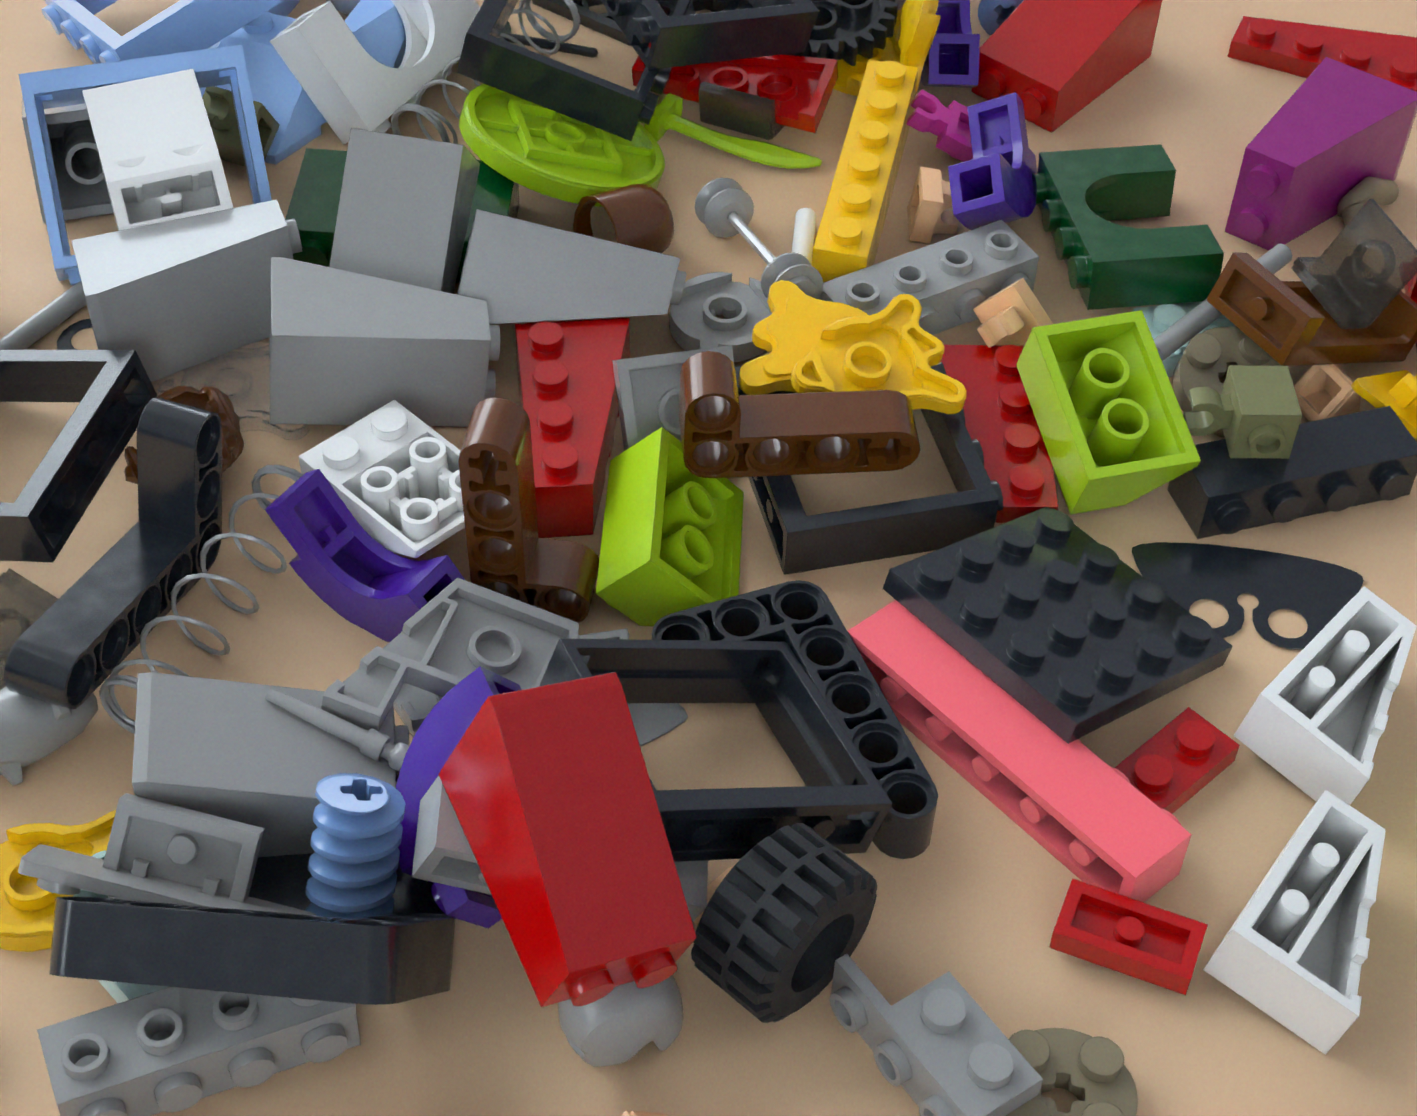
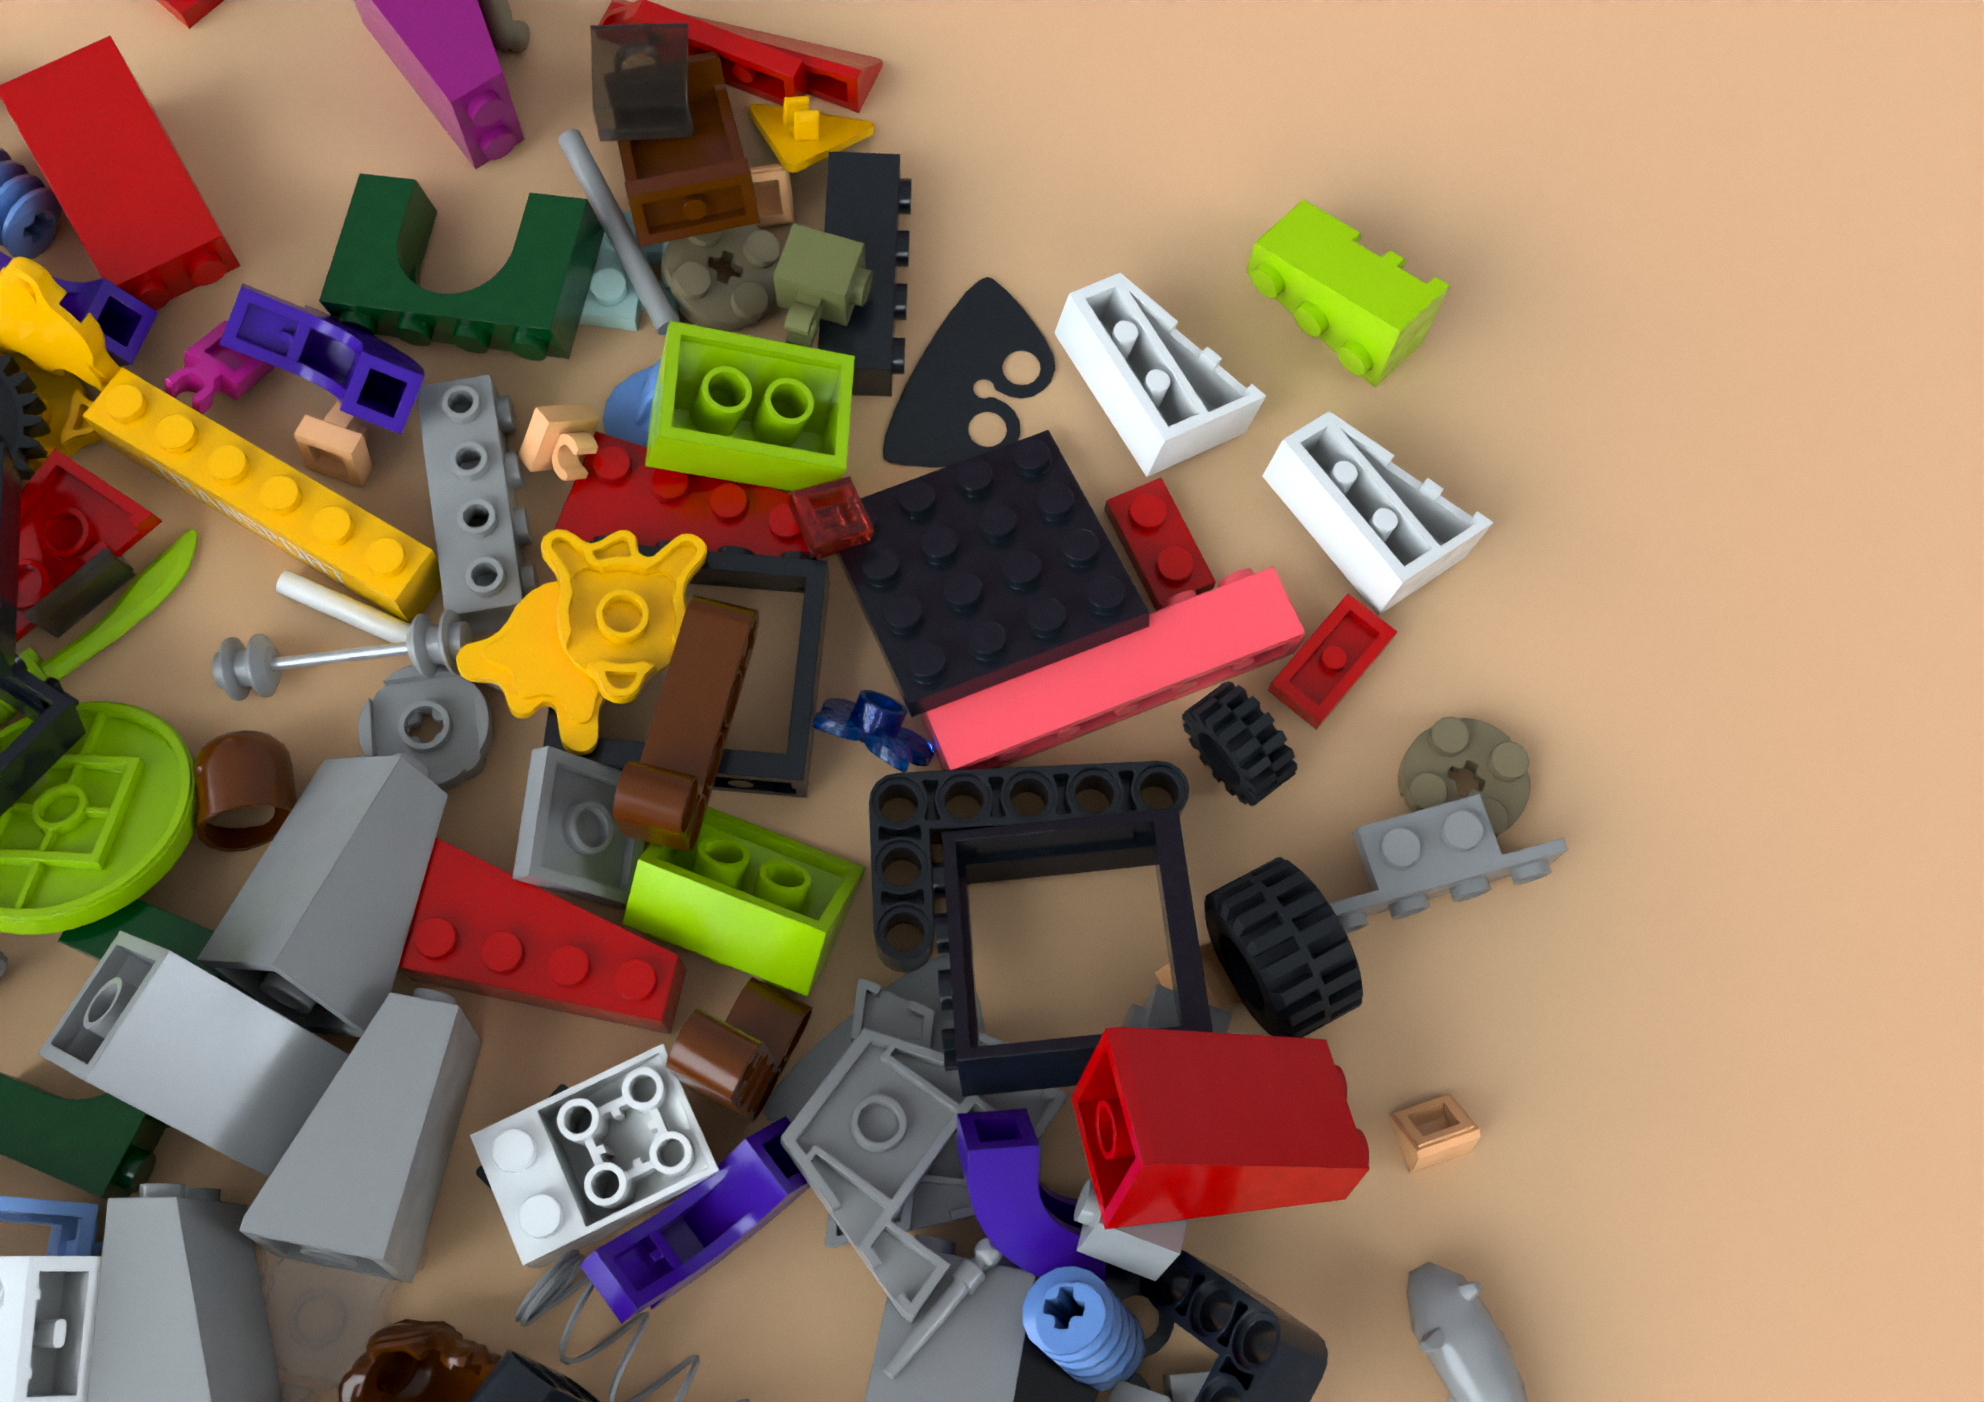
camera: 75 degrees left, 25 degrees up
(860, 576) = (877, 723): none -> clear blue animal
(988, 852) = (1239, 743): none -> black tyre
(1038, 487) = (830, 517): none -> clear red tile

